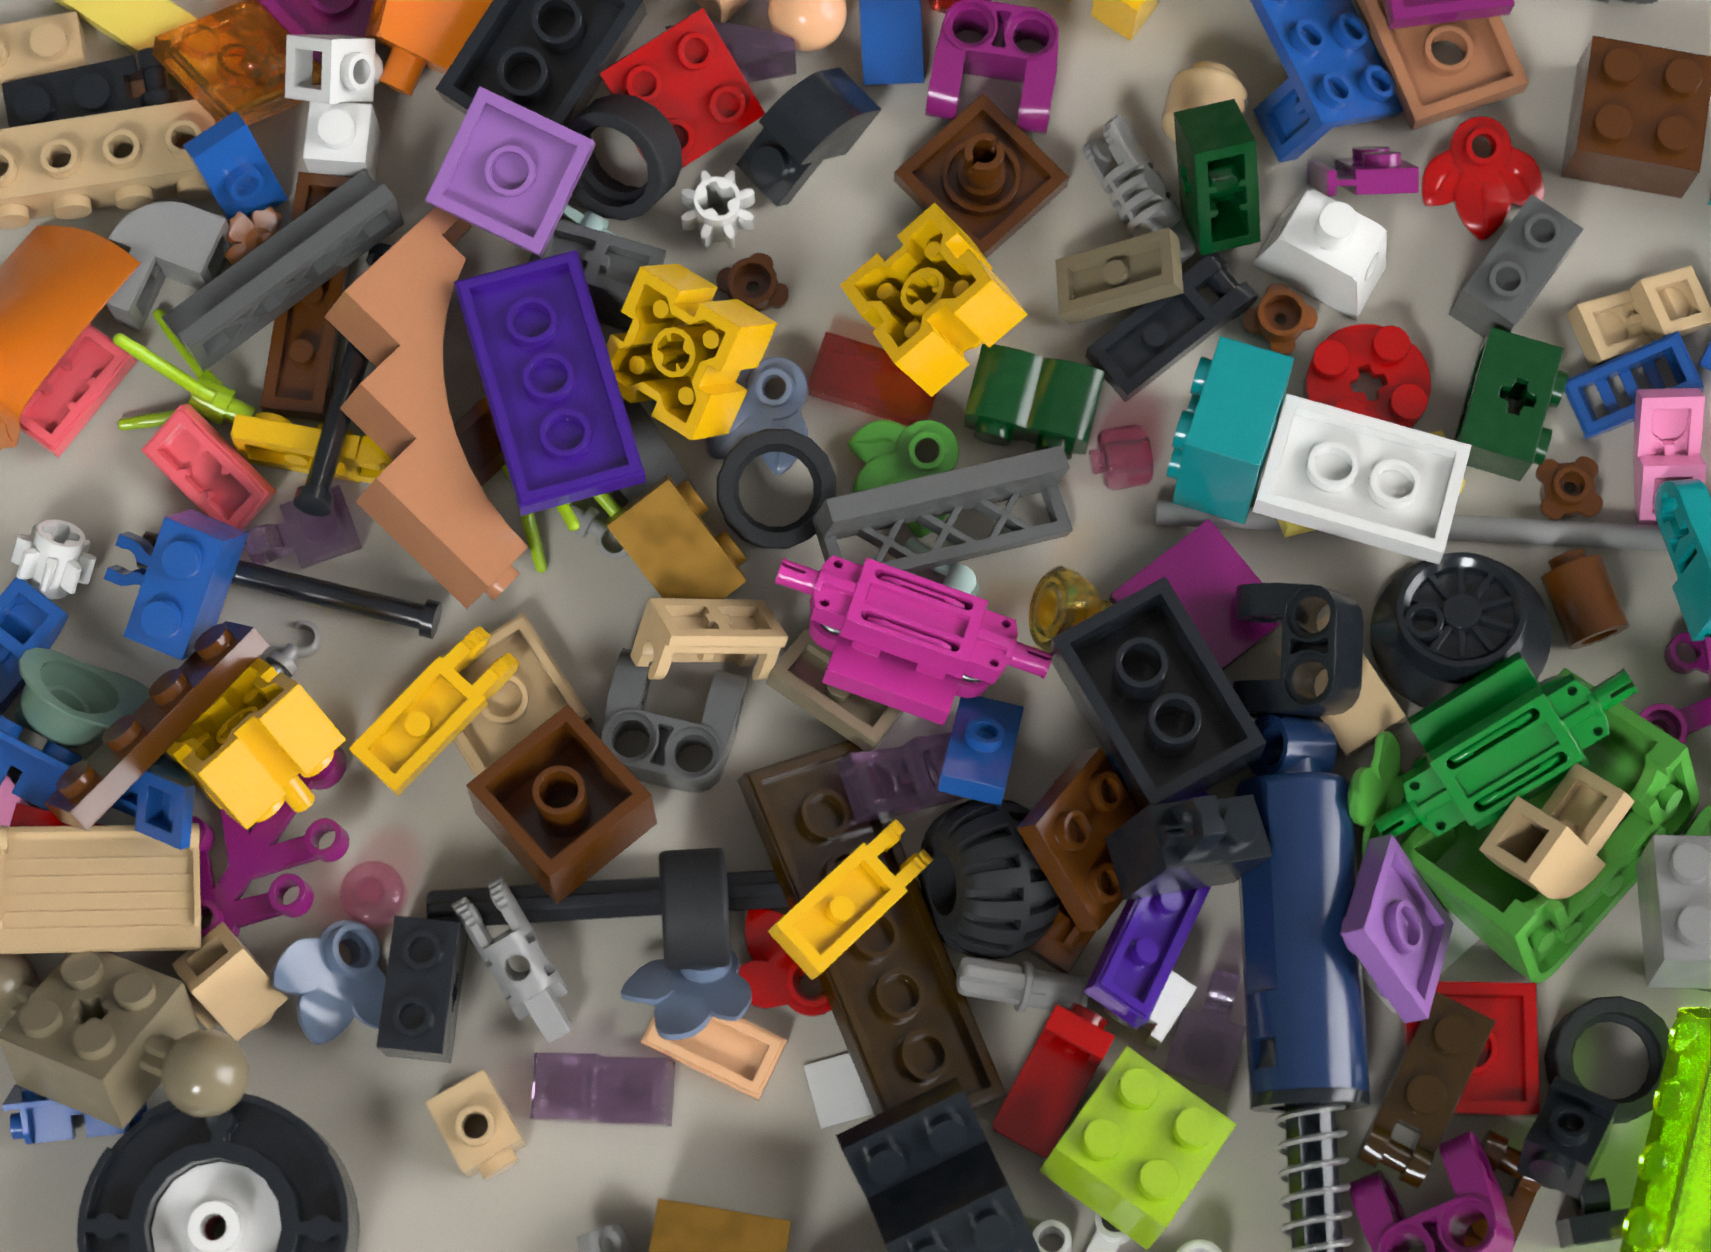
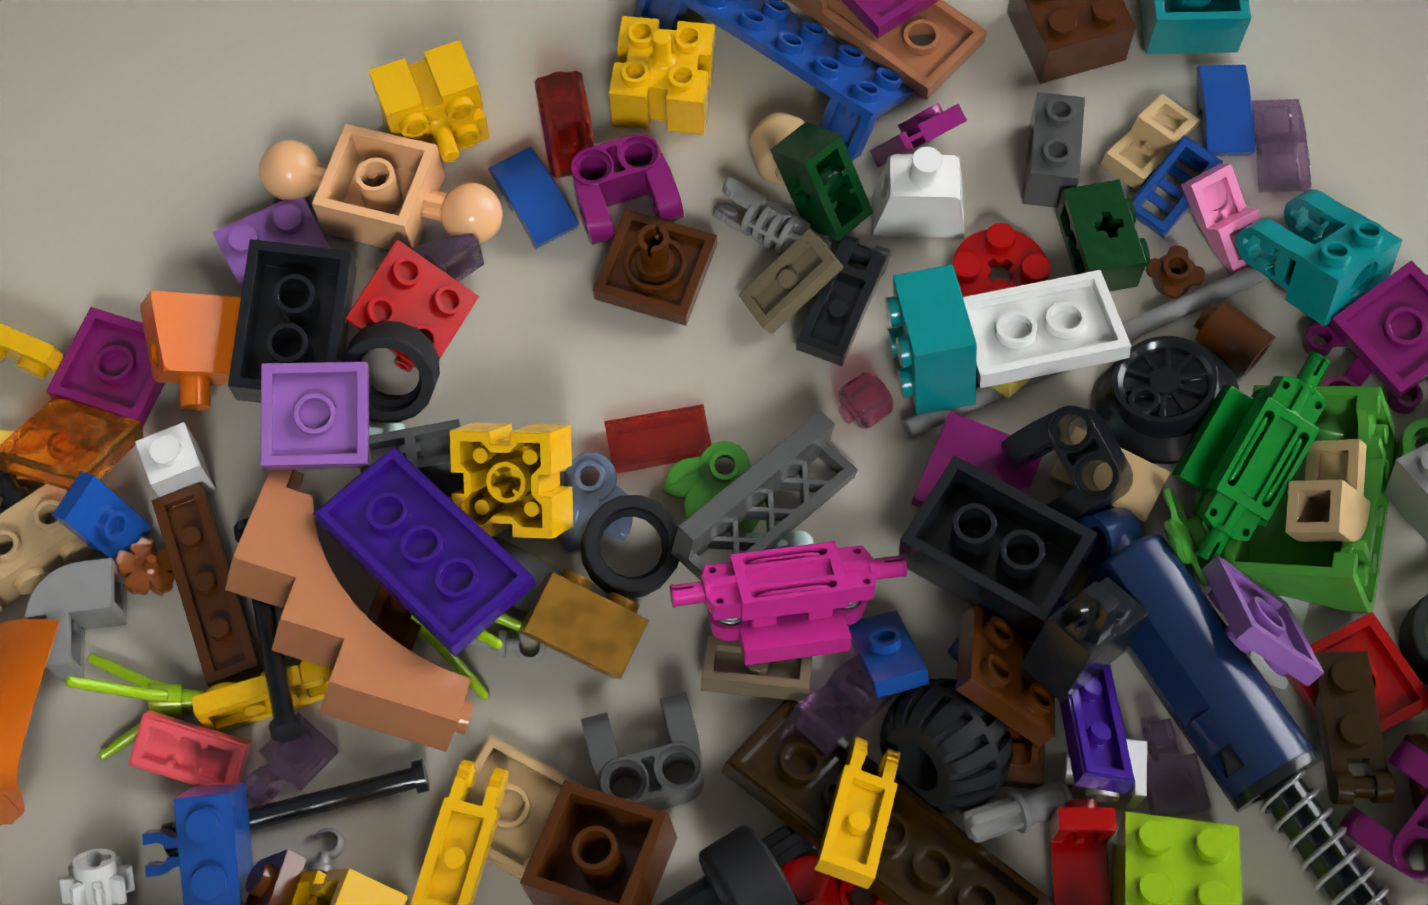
camera: 25 degrees left, 10 degrees down
(75, 390) = (52, 746): coral plate -> none
(284, 269) = (175, 574): dark grey fence -> none
(347, 72) = (152, 403): white brick -> none
(707, 633) = (641, 673): tan hinge -> none
(726, 194) = (480, 376): white gear -> none
(757, 270) = (533, 404): reddish brown plate -> none
(804, 127) = (512, 290): black brick -> none
(933, 300) = (673, 355): yellow brick -> none
(1033, 400) = (778, 393): dark green brick -> none
(1060, 603) = (882, 522): clear yellow brick -> none
(1280, 301) = (917, 247): dark orange plate -> none
(1477, 185) = (993, 111): red plate -> none

